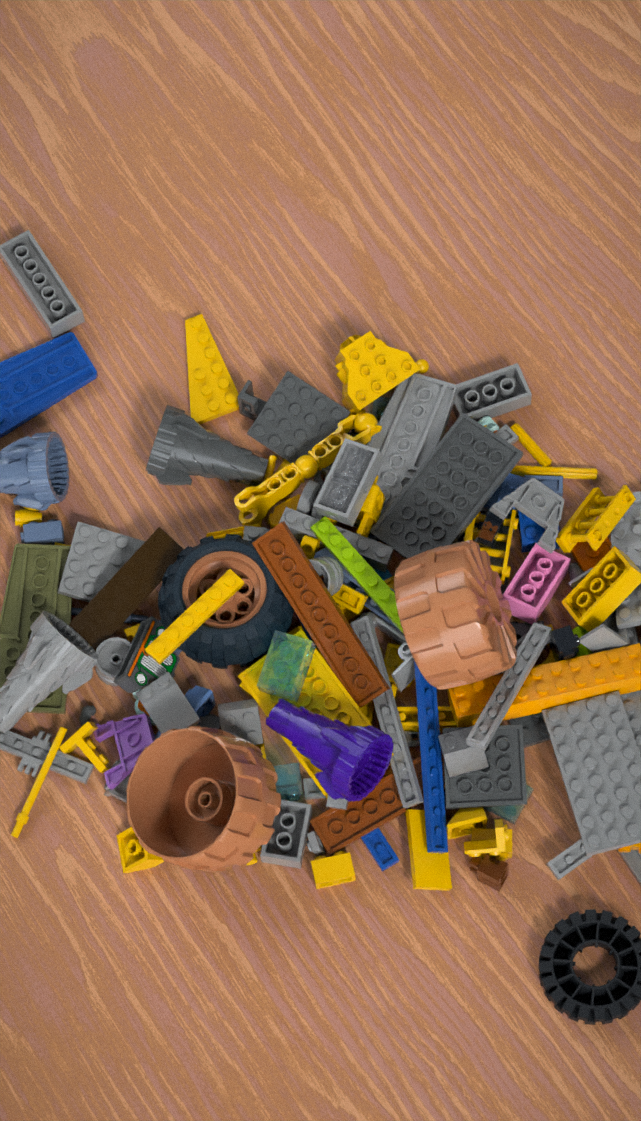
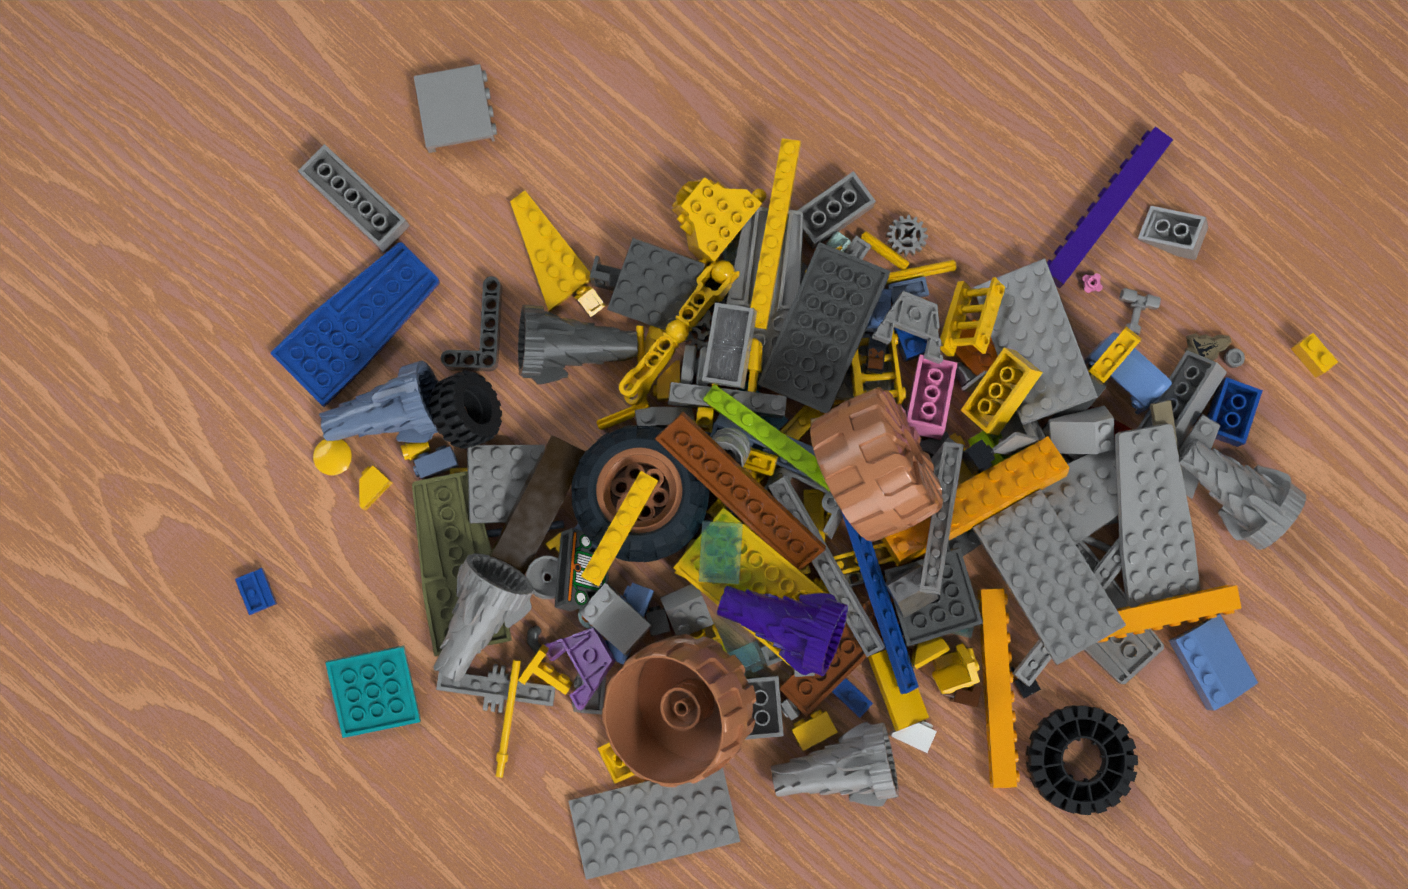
camera: 25 degrees left, 15 degrees up
(85, 487) = (449, 414): none -> black tyre
(126, 431) = (485, 334): none -> dark grey beam
(151, 917) = (652, 823): none -> light grey plate
(159, 226) = (454, 106): none -> light grey panel
(233, 424) = (589, 300): none -> yellow bracket
(367, 908) = (855, 766): none -> light grey cone
(423, 400) = (775, 230): none -> yellow plate
(432, 901) = (916, 735): none -> white slope
(527, 878) = (997, 689): none -> light orange brick
(557, 432) = (911, 241): none -> light grey gear
(560, 886) = (1024, 690): none -> black plate

